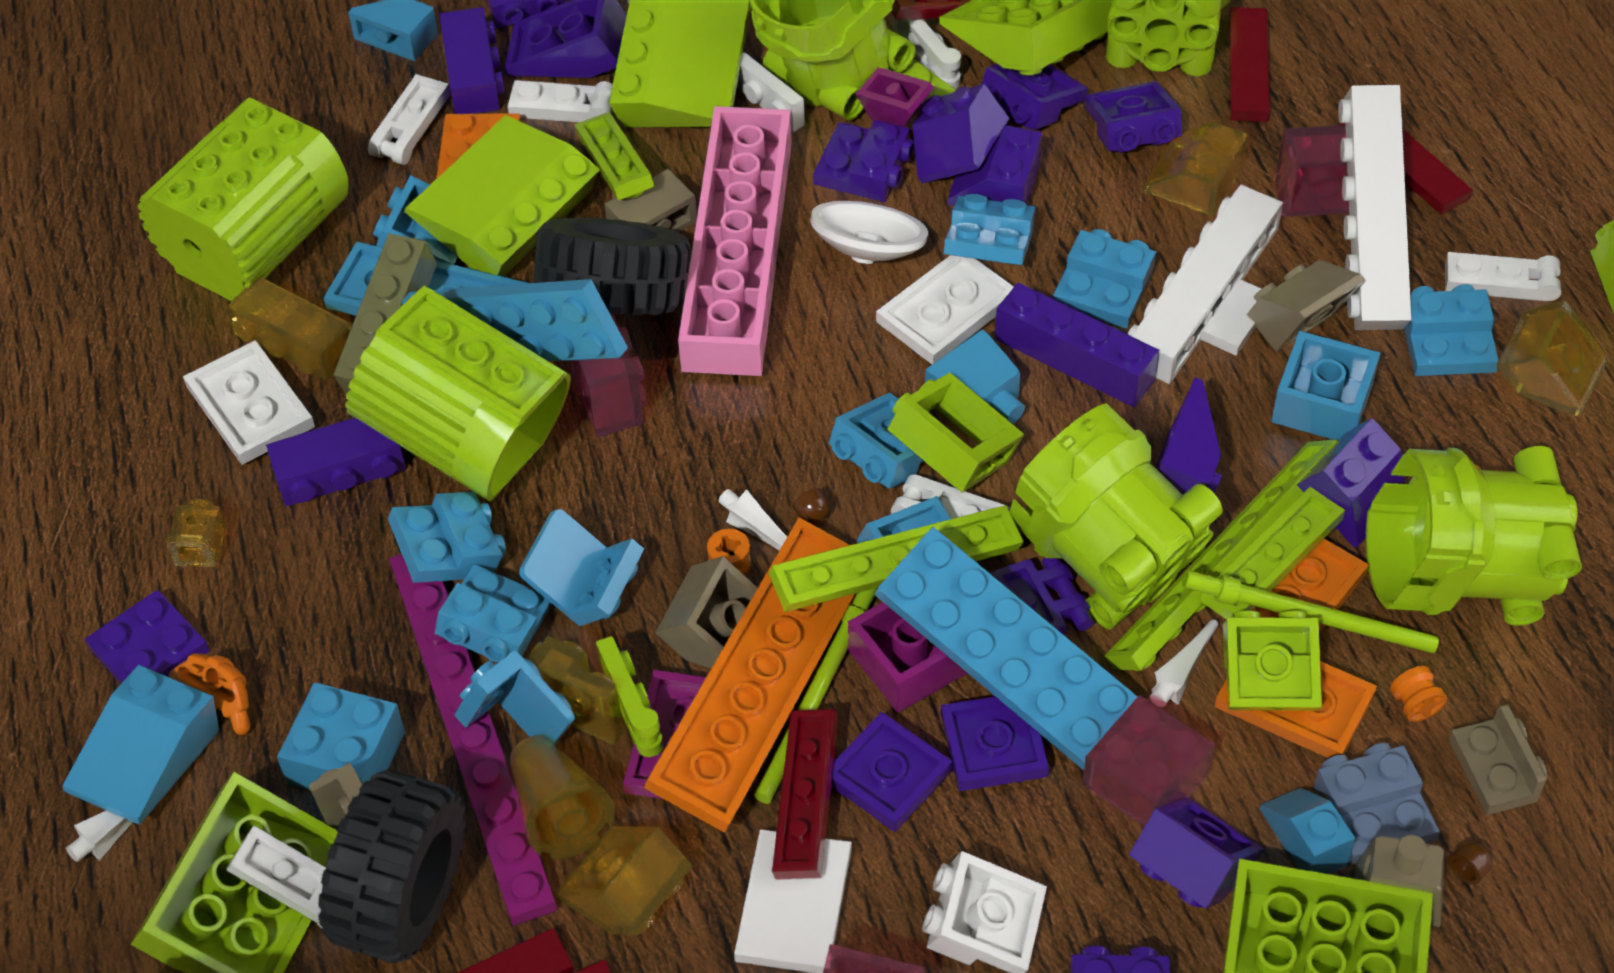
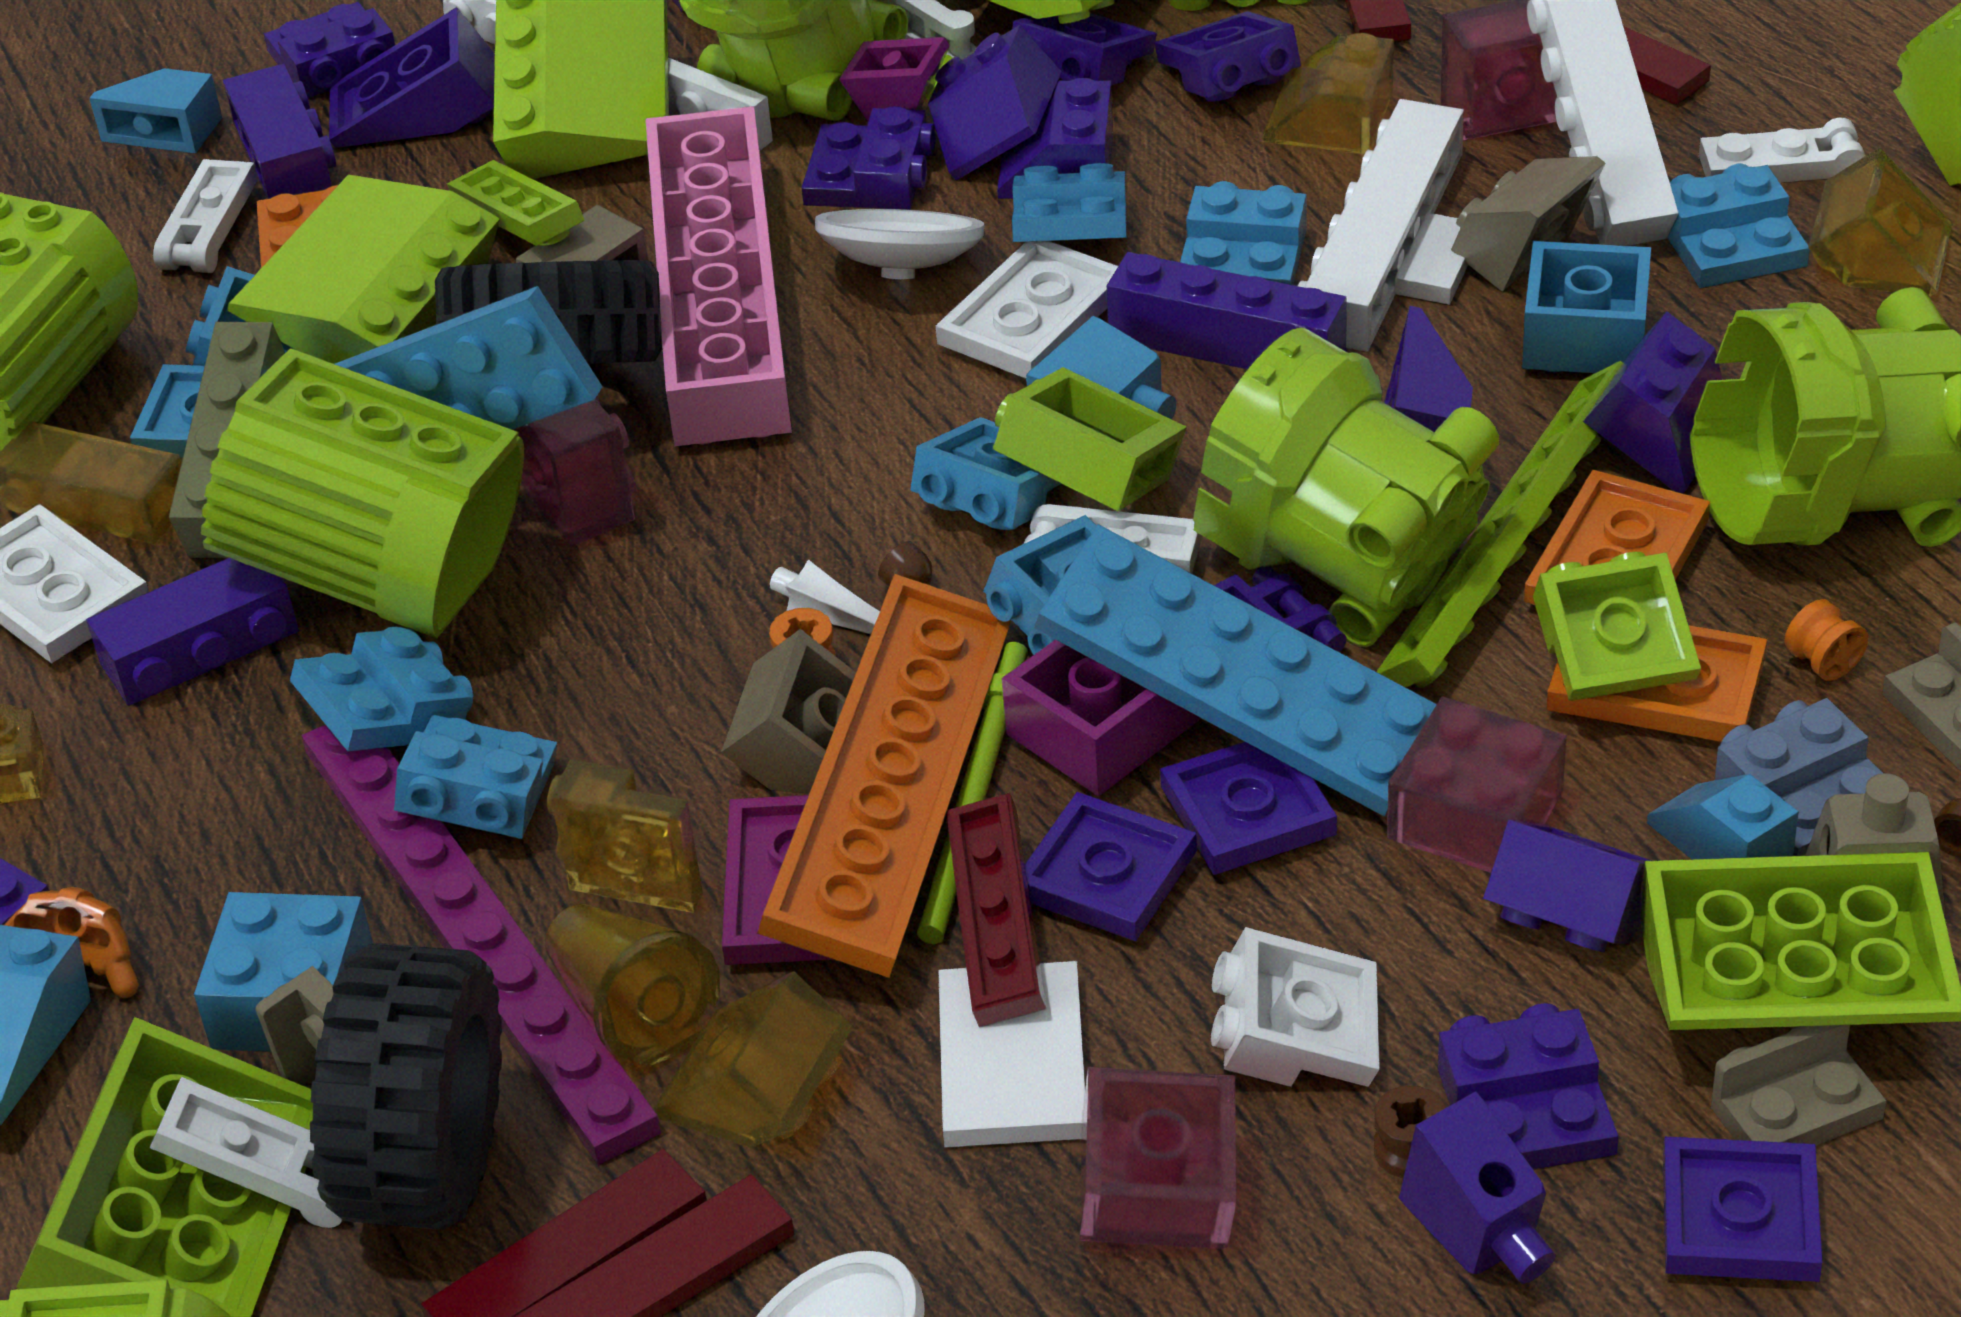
camera: 10 degrees left, 10 degrees down
(523, 695) = (543, 851): dark azure bracket -> none
(559, 101) = (423, 161): white plate -> none
(578, 570) = (586, 698): dark azure bracket -> none
(633, 700) = (722, 848): lime plate -> none
(869, 563) = (1010, 599): lime plate -> none
(1175, 674) = (1481, 677): white piece -> none
(1230, 590) = (1534, 546): lime bar -> none
(1280, 547) = (1577, 503): lime plate -> none

